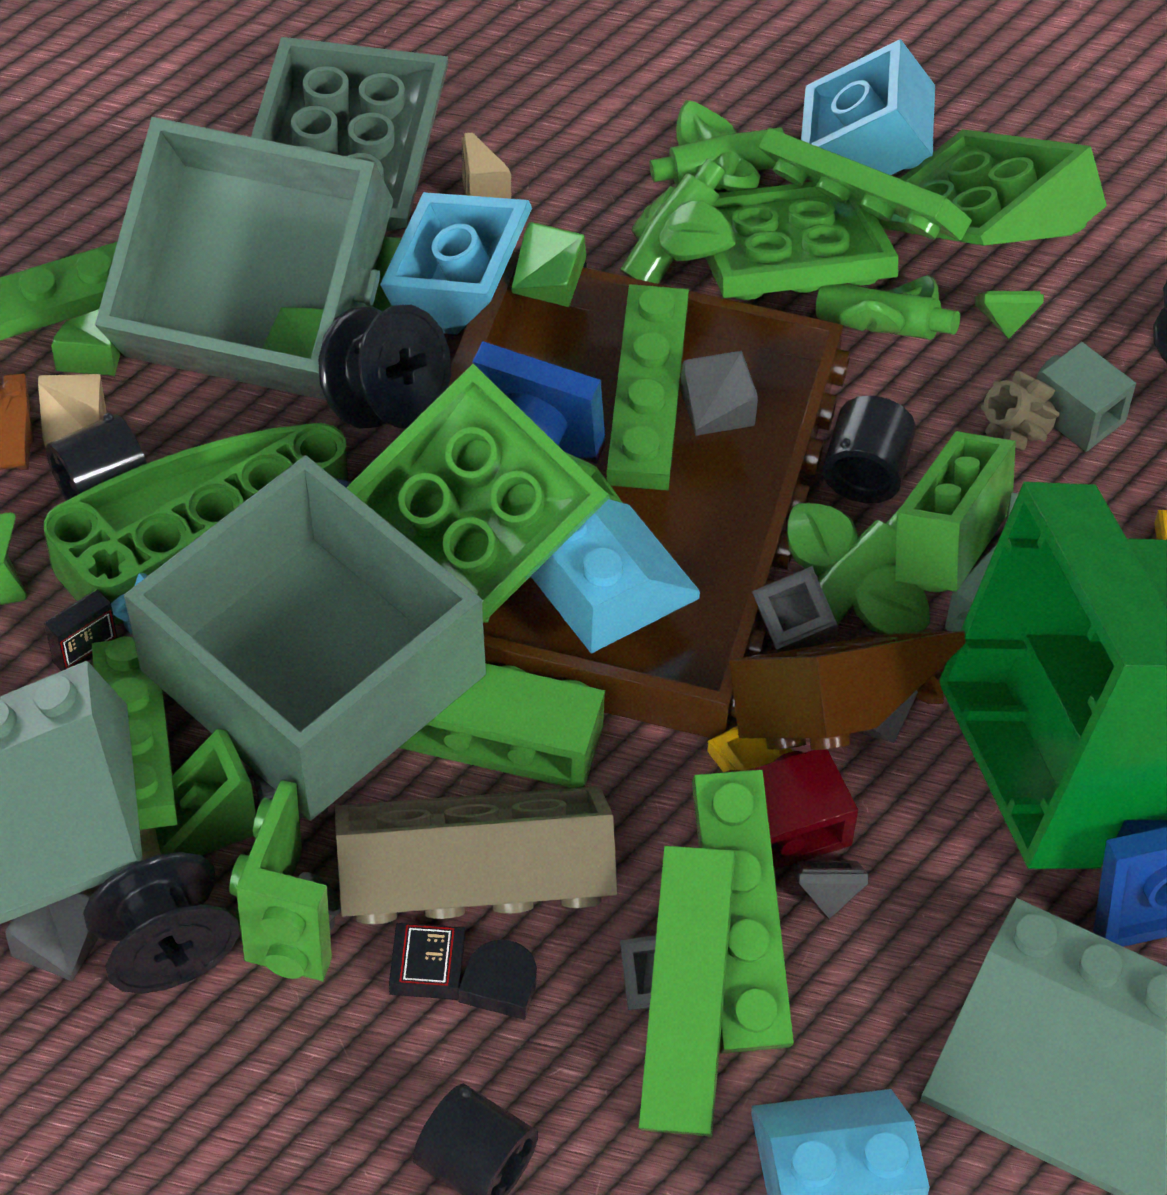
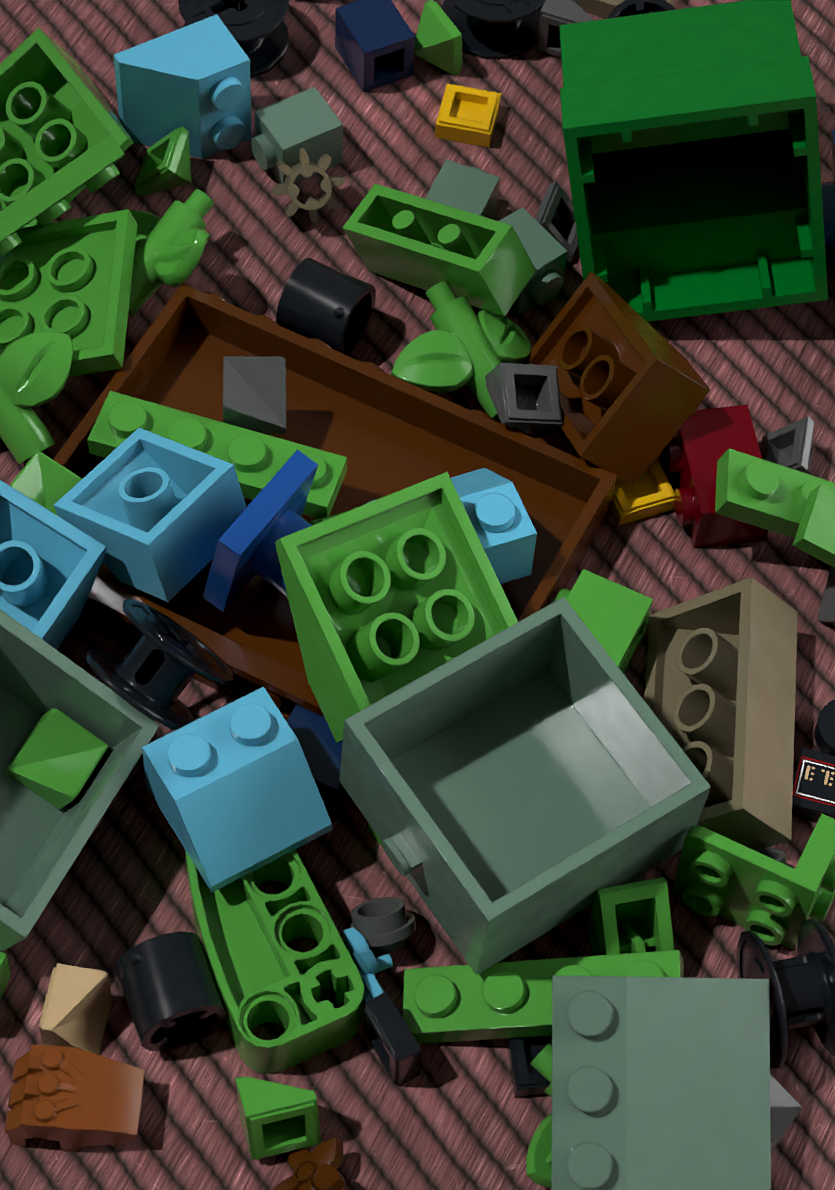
camera: 80 degrees left, 5 degrees up
(267, 425) = (236, 789): none -> medium azure slope
(554, 320) = (155, 511): none -> medium azure slope
(1090, 283) = (186, 80): none -> medium azure slope

